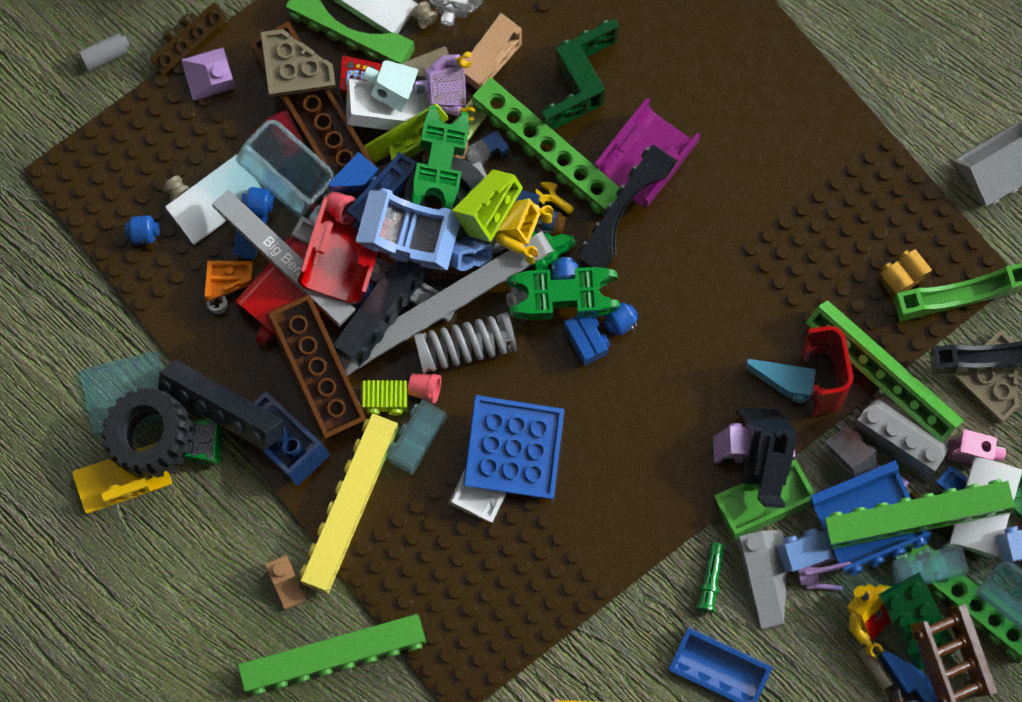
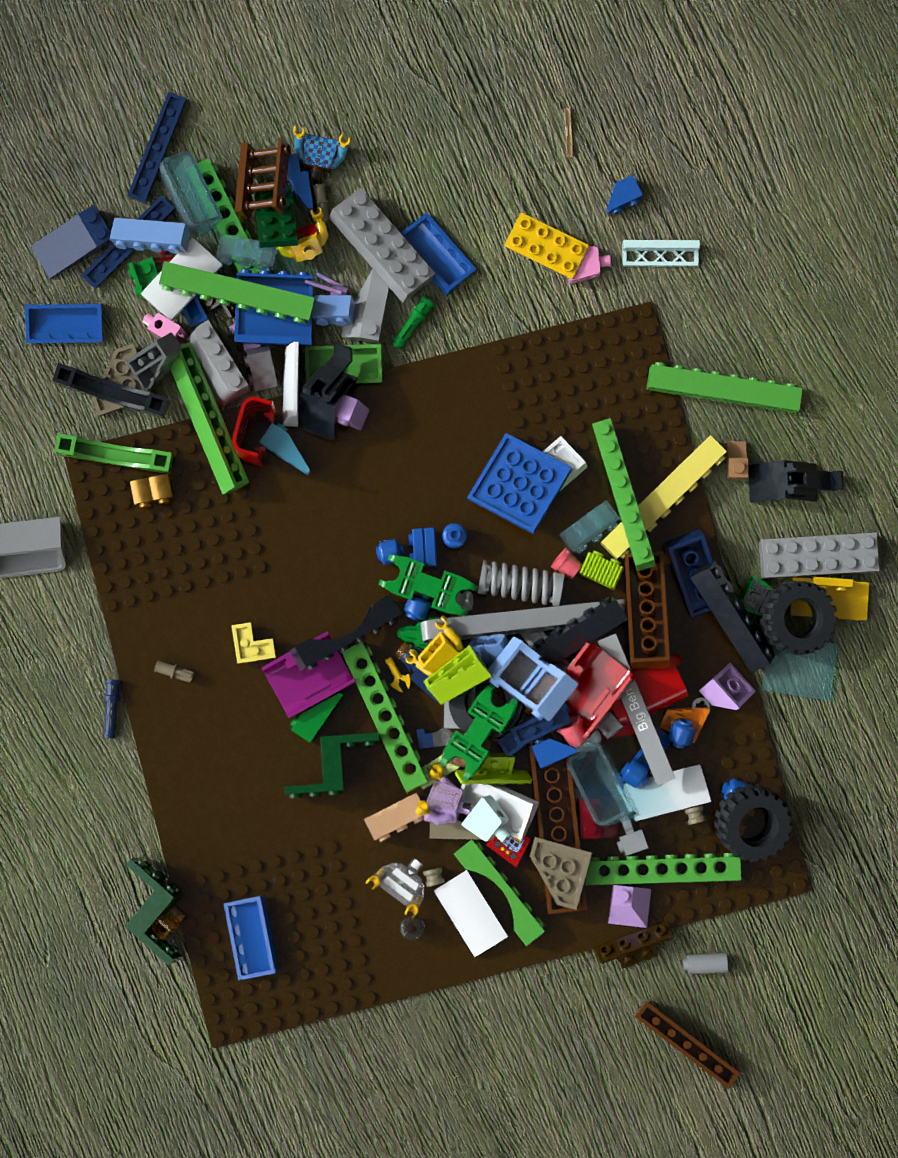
camera: 165 degrees left, 10 degrees up
(96, 181) = (773, 835): none -> black tyre
(151, 516) = (818, 556): none -> light grey brick
(175, 117) = (731, 873): none -> bright green brick
(194, 330) = (727, 689): none -> lavender slope
(214, 583) = (790, 481): none -> black piece
(225, 261) = (682, 733): none -> blue head
(231, 134) = (632, 841): none -> light grey brick
(394, 480) = (623, 495): none -> bright green brick
(559, 363) = (454, 536): none -> blue head
(622, 107) = (313, 719): none -> green slope
(724, 157) = (249, 650): none -> light yellow plate
(786, 646) = (381, 245): none -> light grey brick
(789, 102) = (173, 671): none -> dark tan axle
(809, 446) = (291, 385): none -> white slope
(840, 52) = (109, 732): none -> dark blue pin
(971, 404) = (154, 361): none -> dark grey wedge

